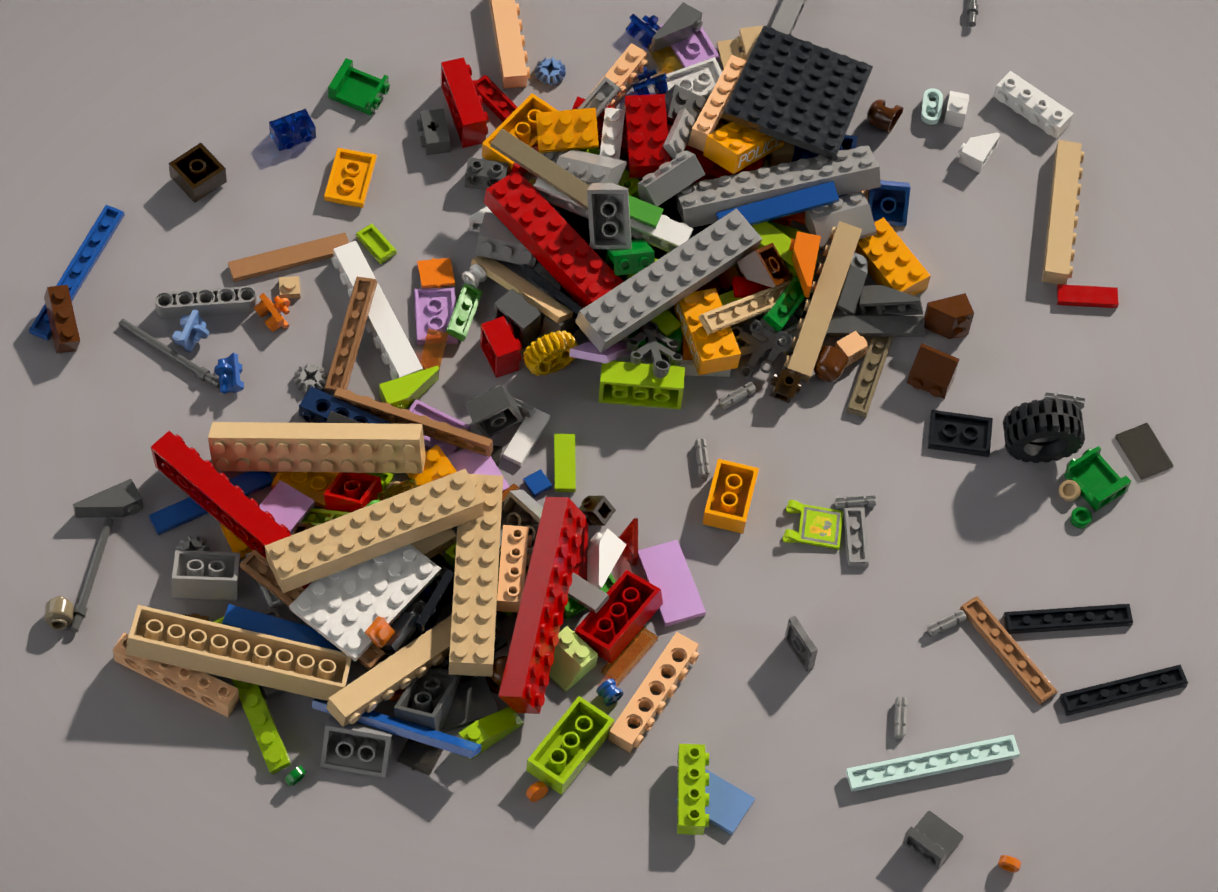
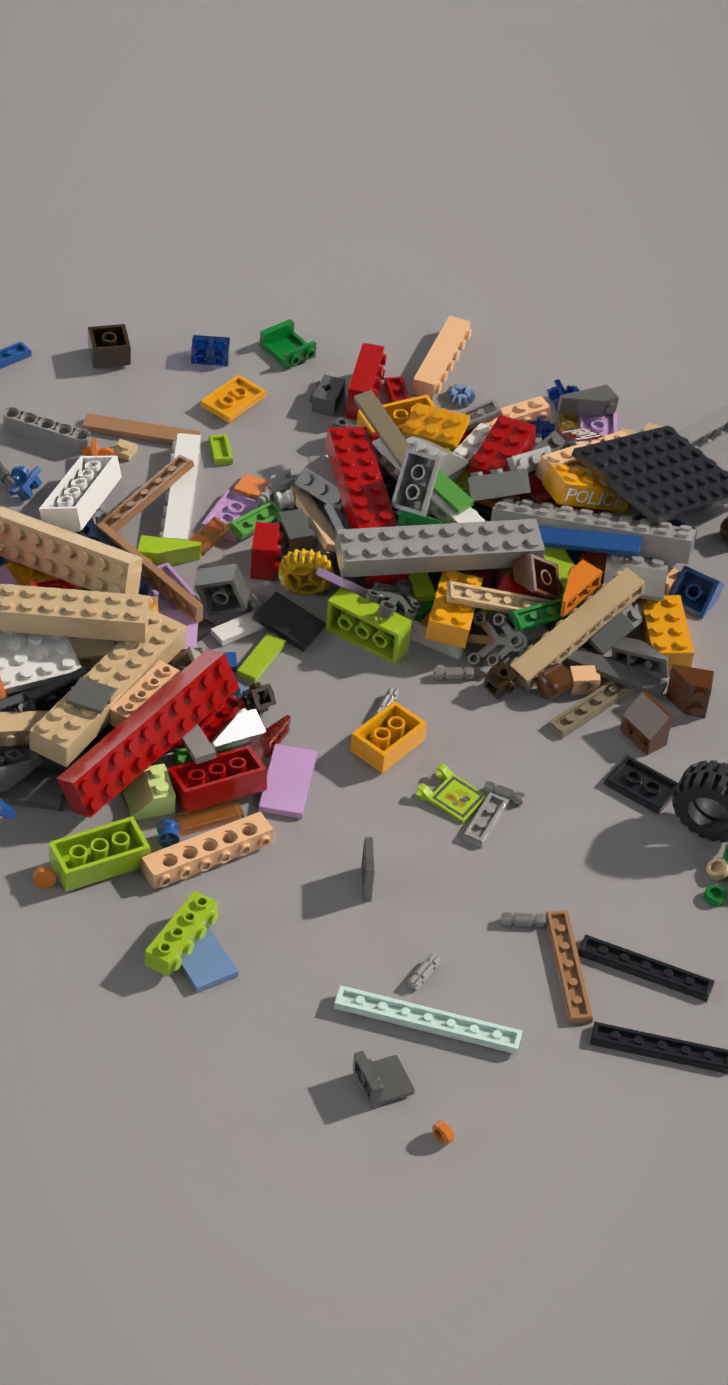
camera: 30 degrees right, 15 degrees down
(193, 331) = (18, 444): medium blue hips -> none
(298, 366) = (81, 492): none -> white brick
(454, 262) = (275, 485): none -> light grey piece
(477, 598) = (90, 695): none -> dark grey piece
(492, 728) = (39, 815): lime slope -> none
(565, 411) = (289, 621): none -> black tile
(696, 74) = (581, 434): none -> sticker

